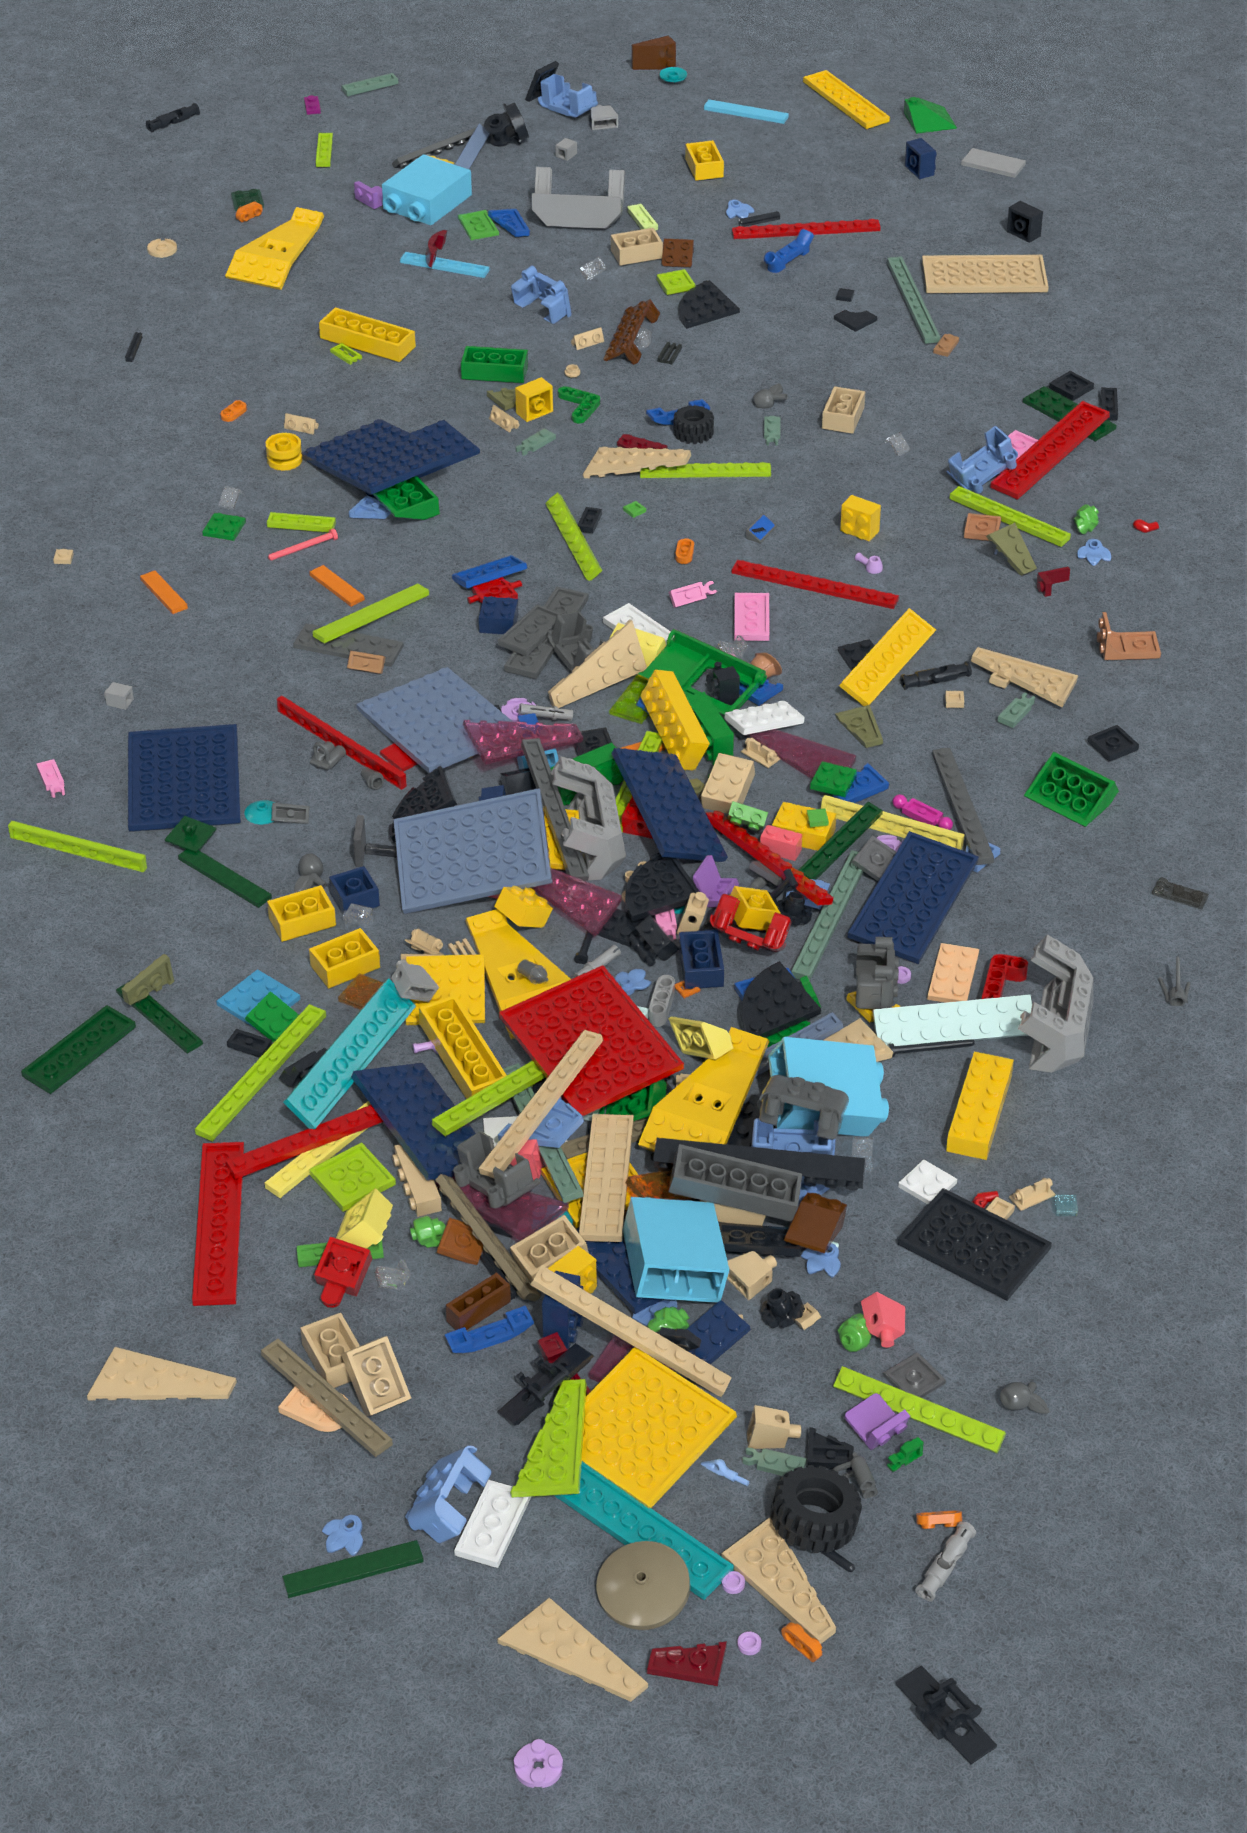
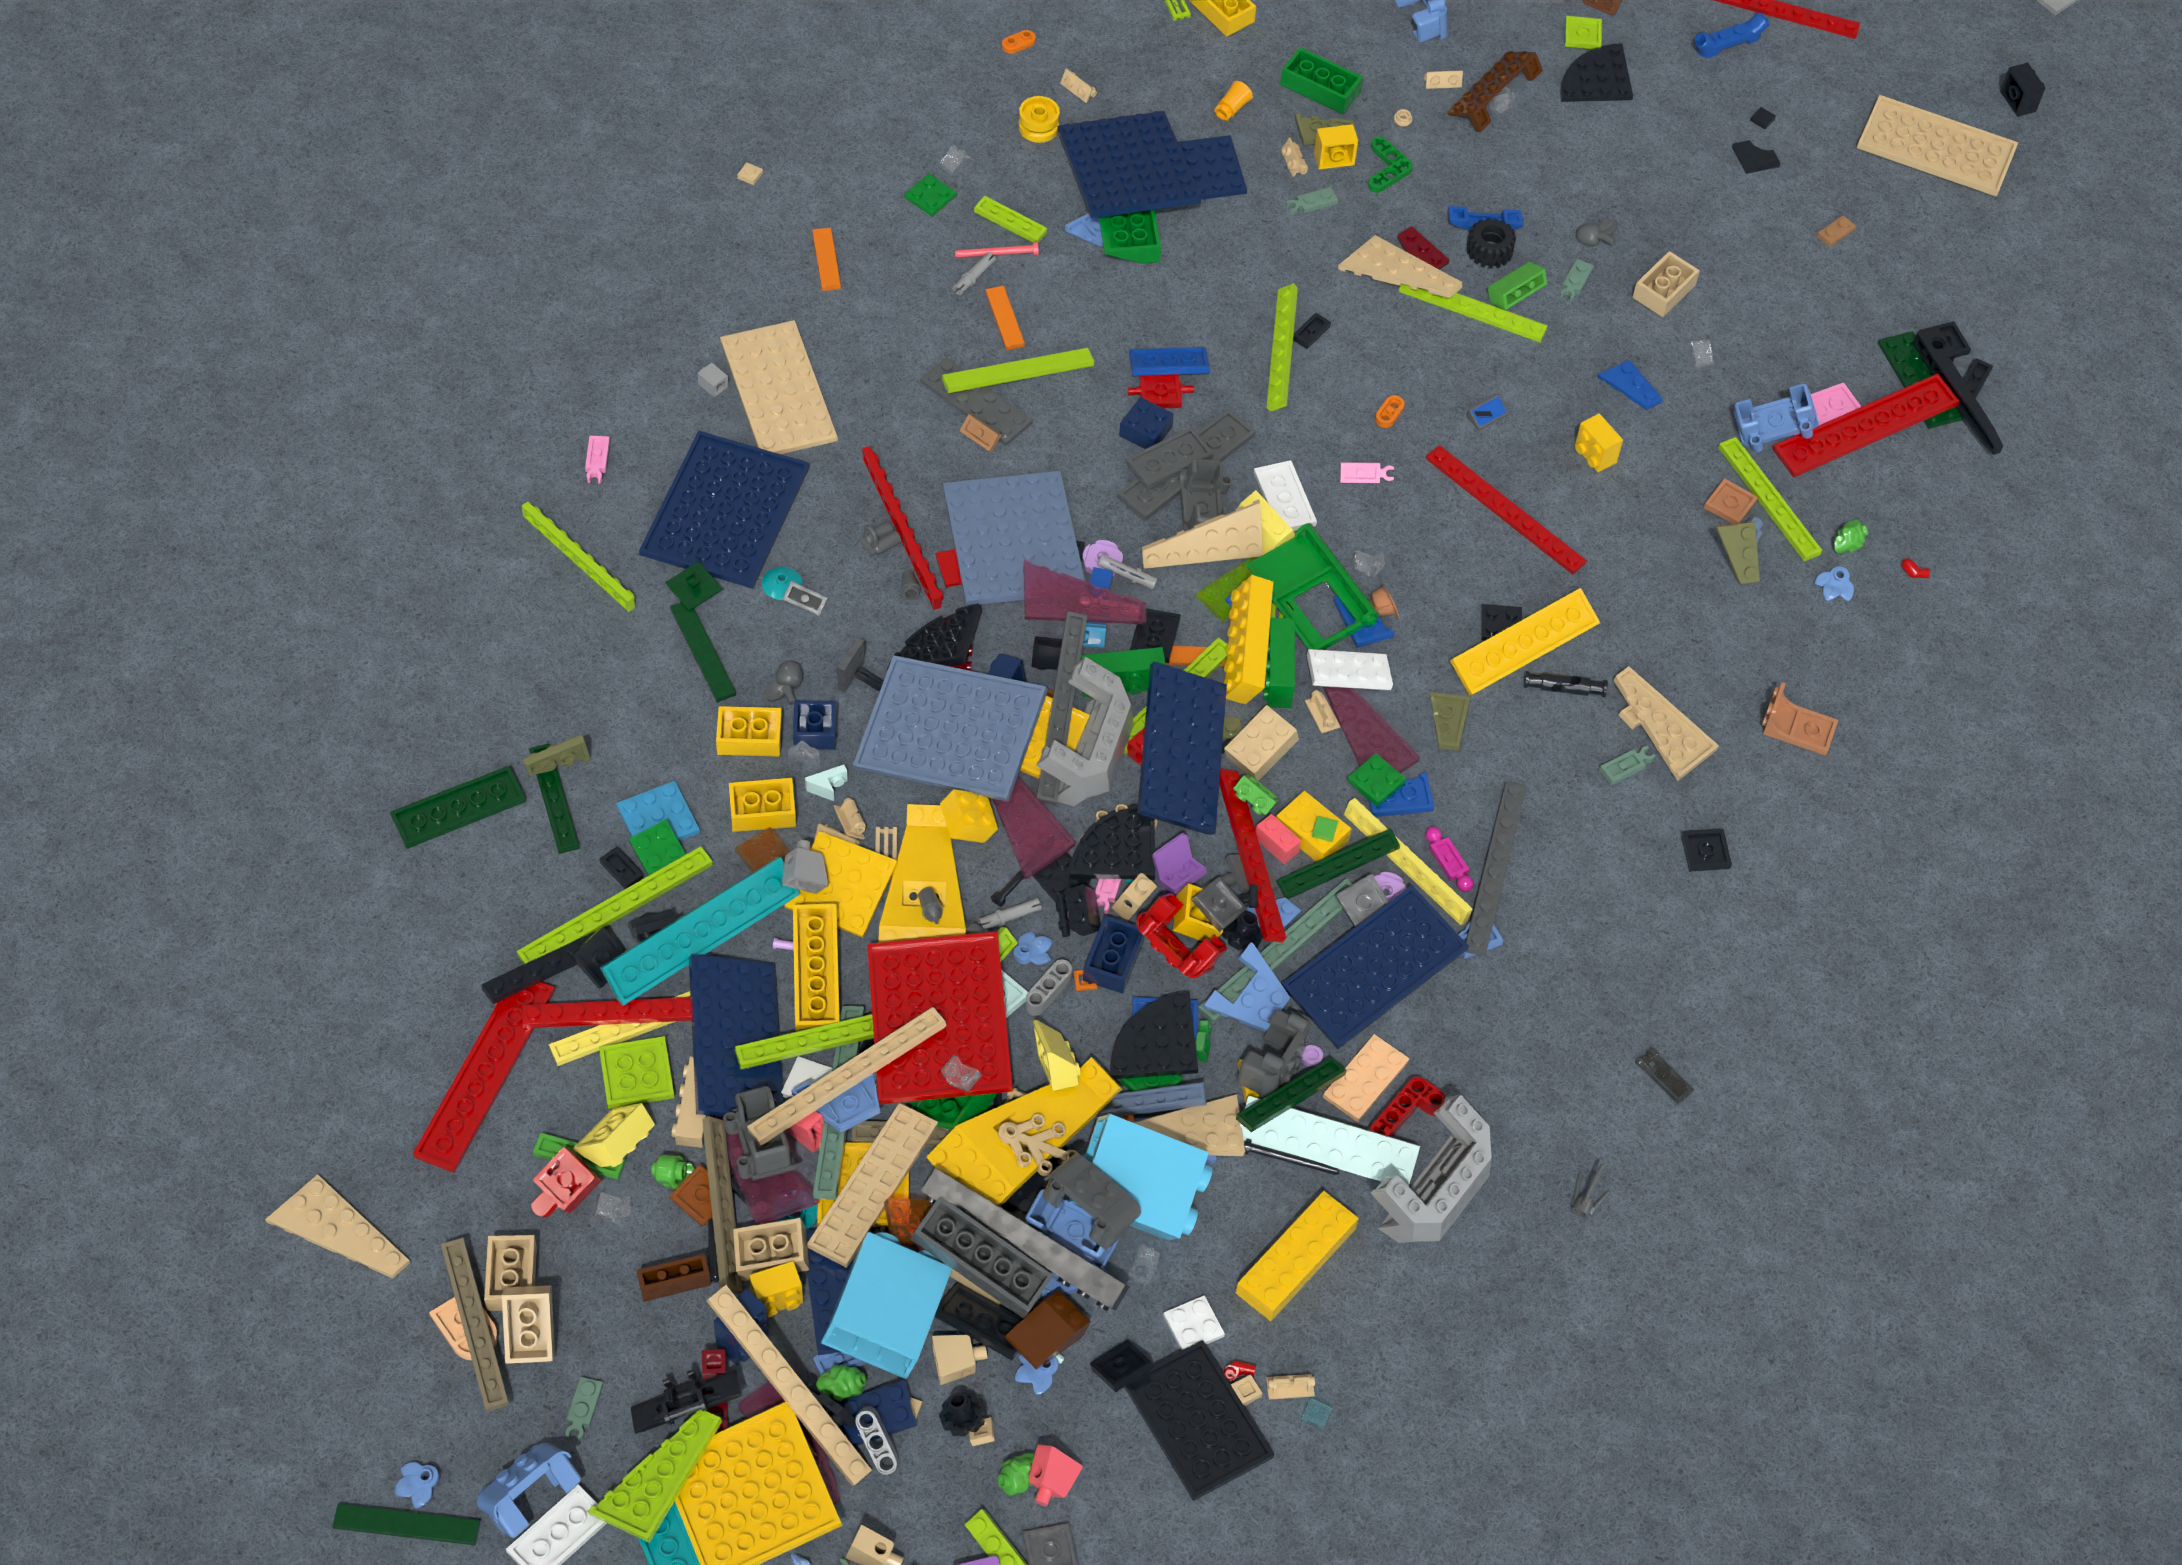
camera: 20 degrees right, 15 degrees up
(177, 686) = (778, 388): none -> tan plate
(226, 1131) = (532, 972): none -> black plate
(269, 1107) = (595, 953): none -> black plate
(292, 567) = (969, 278): none -> light grey pin
(388, 927) = (822, 782): none -> light aqua slope
(433, 395) = (1234, 100): none -> light orange plant
(455, 1425) = (583, 1406): none -> sand green plate
(514, 1324) = (683, 1316): blue slope -> none
(634, 509) = (1368, 333): bright green tile -> none
(638, 1067) = (960, 1075): none -> clear bracket
(678, 348) = (1537, 126): pearl dark grey tile -> none
(704, 1096) = (1034, 1143): none -> tan plant
(725, 684) = (1327, 612): black brick -> none
(731, 444) = (1517, 285): none -> bright green brick
(736, 1351) = (877, 1452): none -> light grey beam
(752, 616) = (1412, 527): bright pink plate -> none
(766, 894) = (1219, 904): none -> flat silver tile
(836, 948) = (1257, 999): none -> medium blue wing
(856, 478) = (1632, 383): none -> blue wing
(873, 564) = (1578, 510): lavender bar -> none
(890, 1227) = (1121, 1365): none -> black plate
(906, 997) = (1291, 1094): none -> dark green tile
(913, 300) = (1834, 154): sand green plate -> none
(954, 699) = (1568, 723): tan plate -> none
(1047, 578) = (1765, 601): dark red bracket -> none
(1072, 790) = (1622, 896): green slope -> none
(1076, 391) = (1939, 360): none -> black piece

